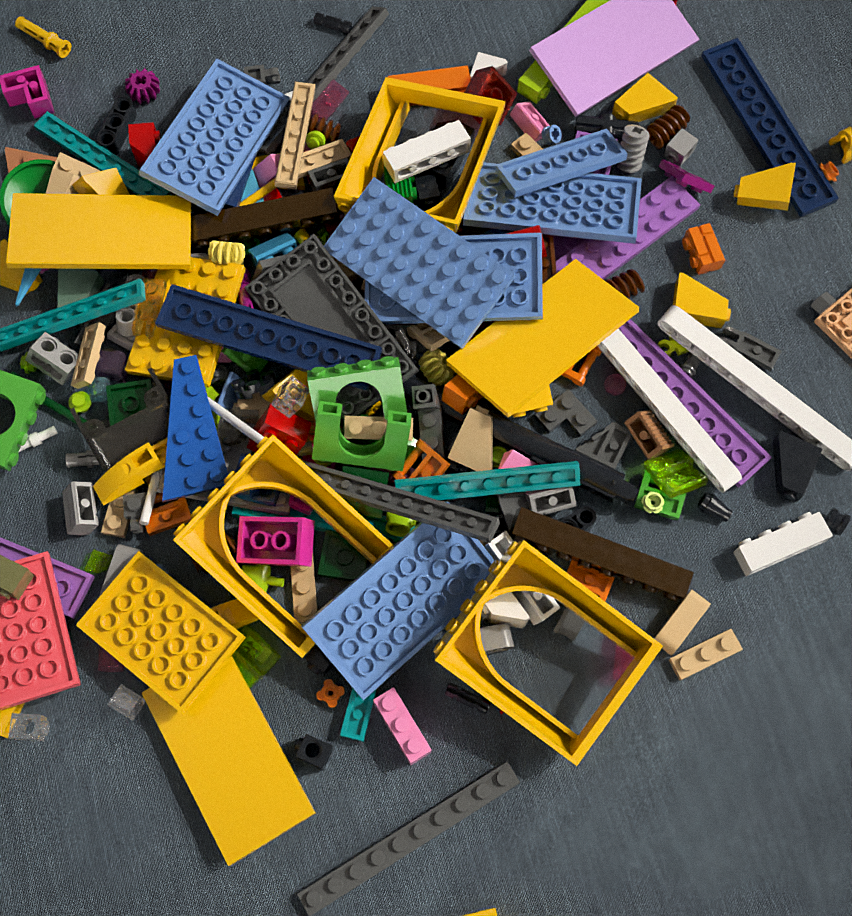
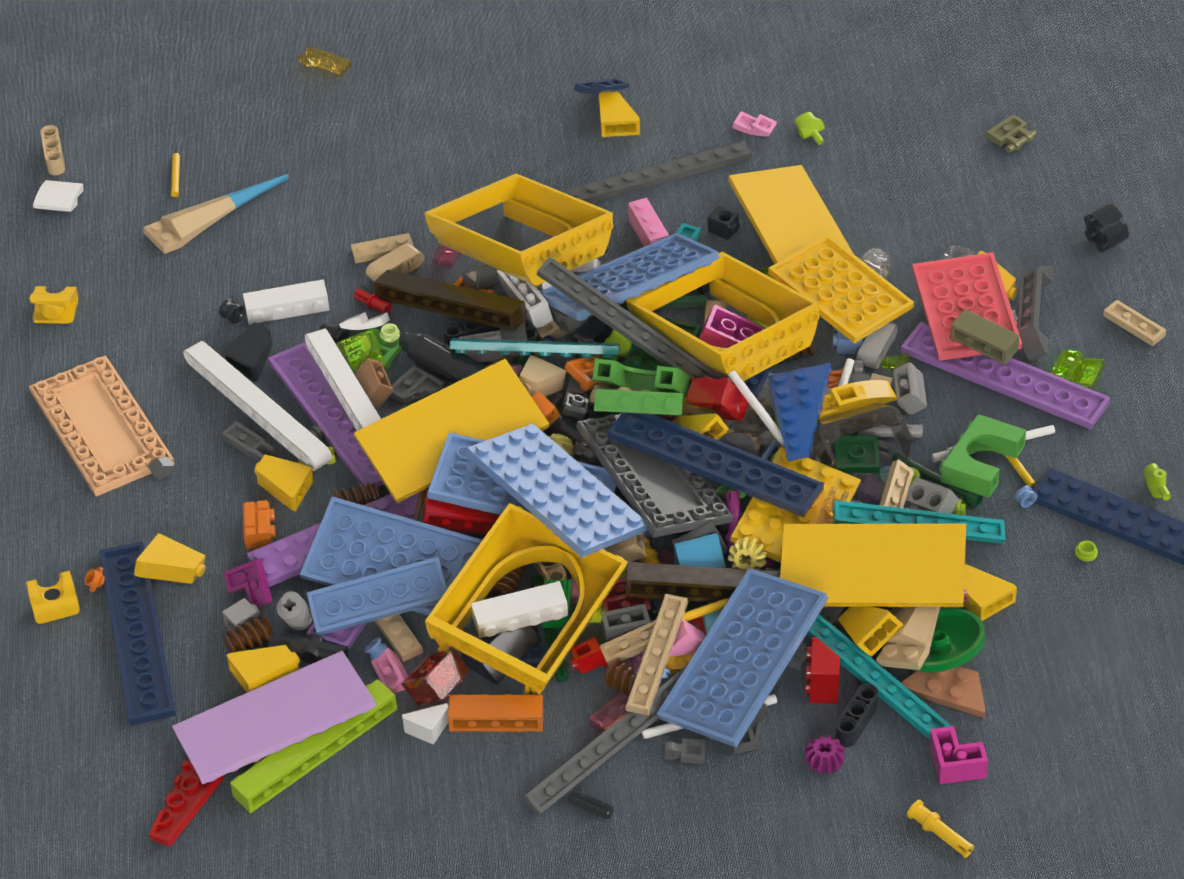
camera: 165 degrees left, 25 degrees down
(290, 397) = (701, 402): clear brick -> none
(315, 139) = (634, 659): lime plate -> none
(685, 517) = (361, 322): none -> white slope
(689, 563) = (372, 301): none -> red axle

